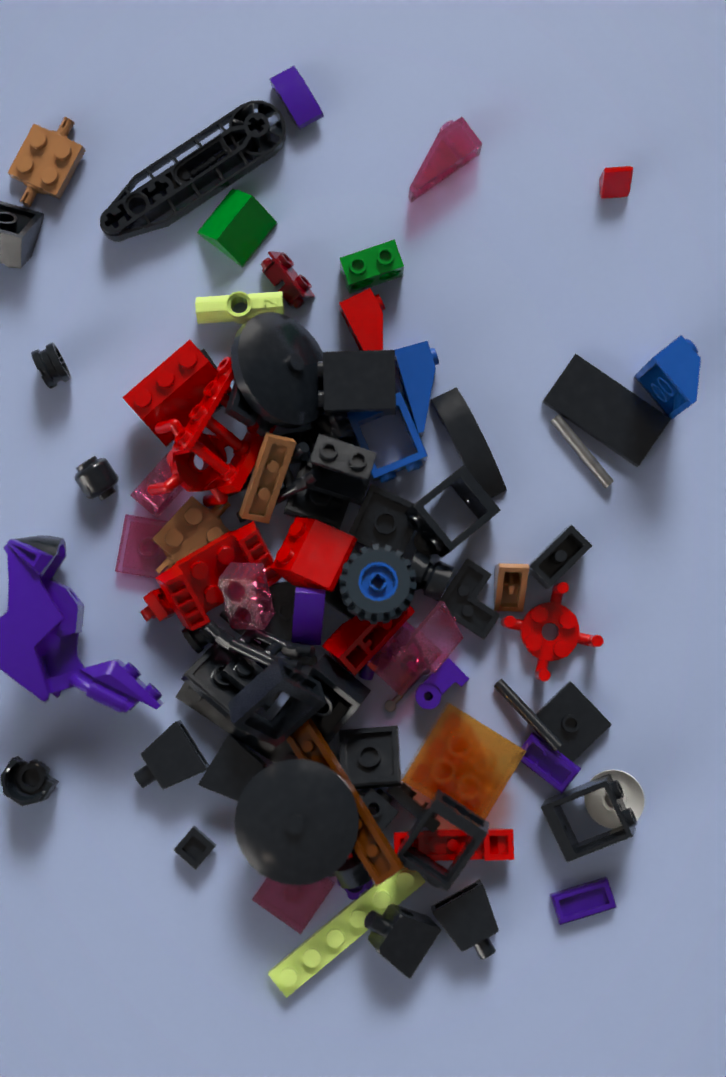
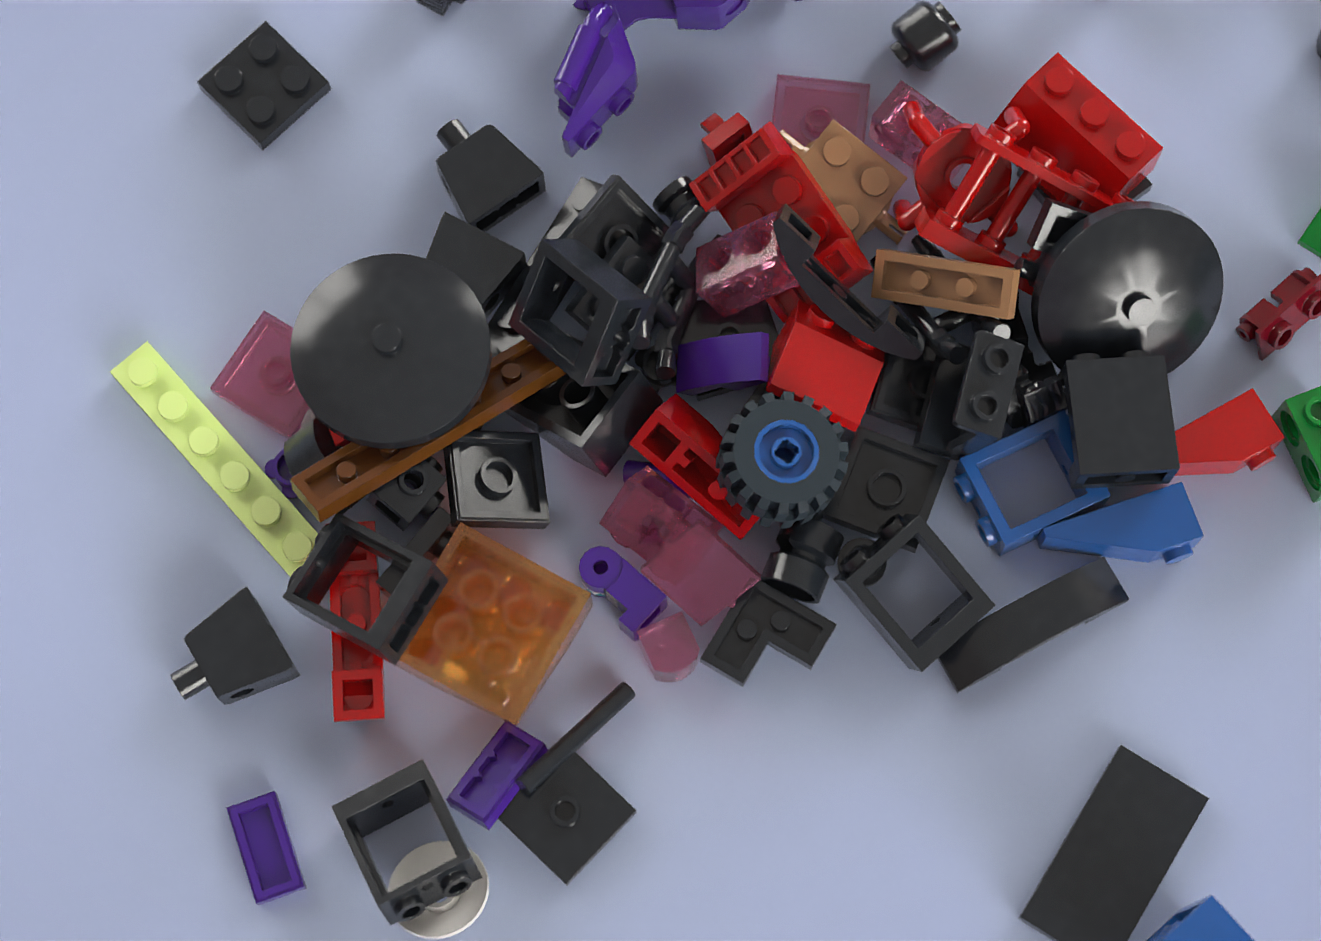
camera: 90 degrees right, 10 degrees down
(99, 898) = (264, 85): none -> black plate
(194, 847) = (345, 219): black plate -> none
(220, 308) = (1224, 210): yellowish green piece -> none
(296, 518) = (887, 332): none -> black slope
(390, 705) = (583, 516): flat silver hinge -> none
(401, 936) = (207, 541): black torso -> none
(477, 657) = (669, 648): none -> clear pink piece
(510, 586) = (792, 699): medium nougat slope -> none
(559, 557) = (848, 774): black brick -> none
(567, 631) = (724, 742): red plate -> none
(582, 451) = (1037, 818): flat silver bar -> none

